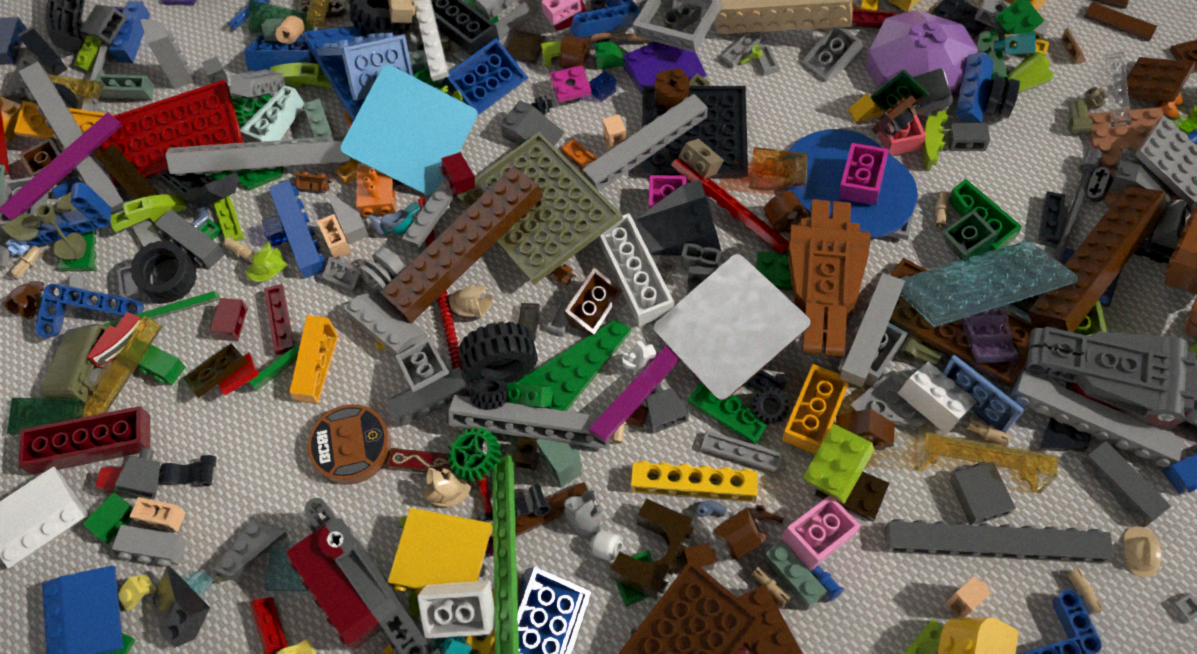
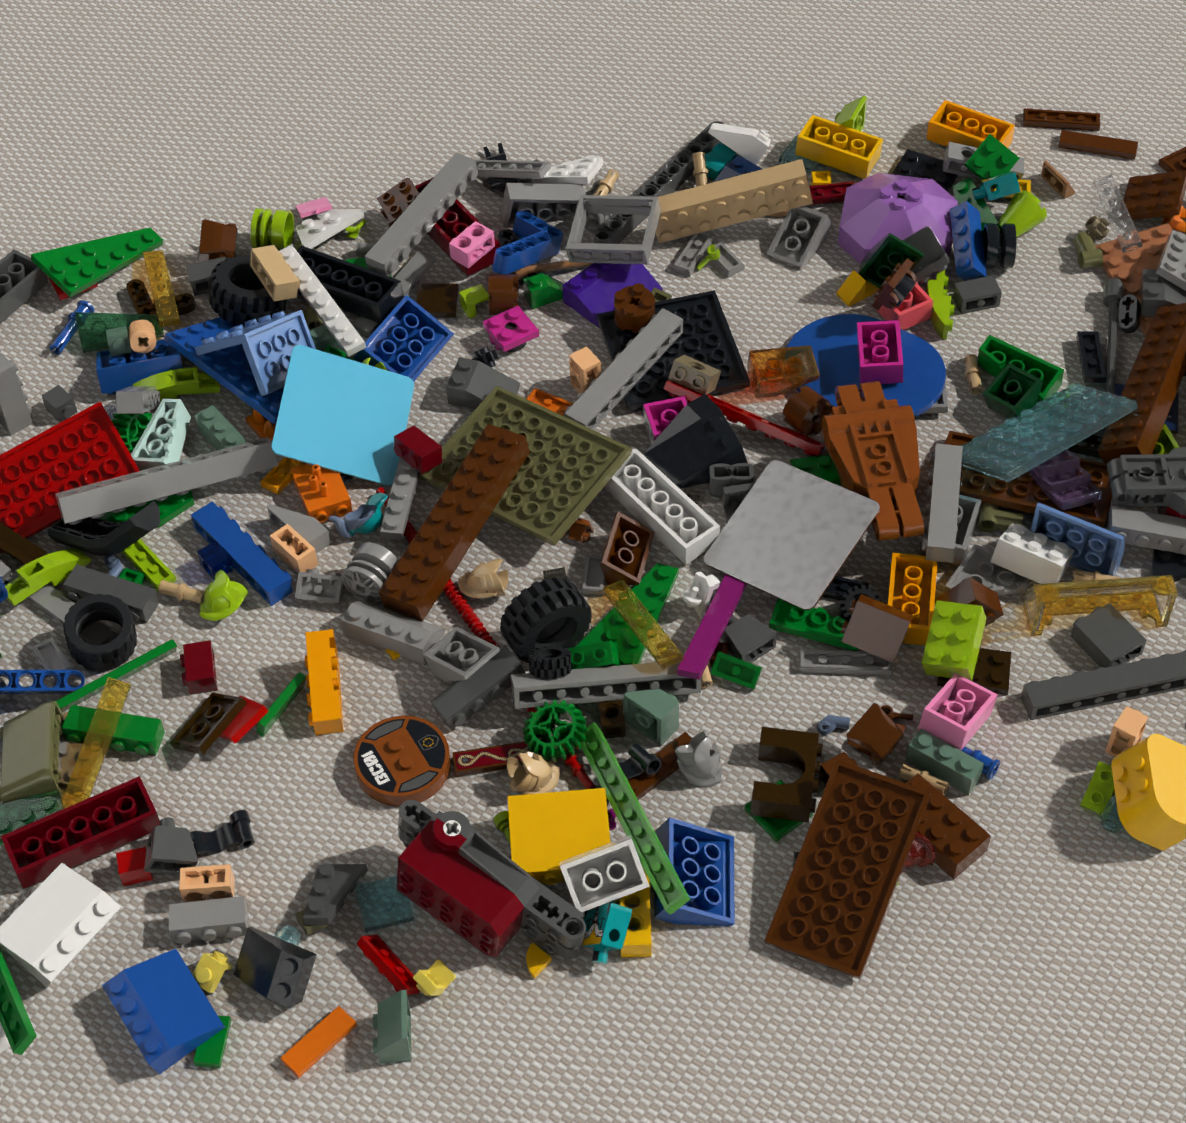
camera: 20 degrees left, 10 degrees down
(109, 517) = (147, 904): green brick -> none
(113, 340) = (78, 713): red slope -> none
(279, 319) = (261, 653): dark red plate -> none
(304, 181) = (245, 497): dark orange hinge -> none
(579, 376) = (643, 624): none -> clear yellow tile
(603, 86) = (549, 323): clear blue brick -> none
(606, 545) = (734, 785): white head -> none
(645, 436) = (736, 670): none -> green plate
(703, 489) = (844, 696): yellow brick -> none
(773, 433) = (876, 627): none -> reddish brown brick

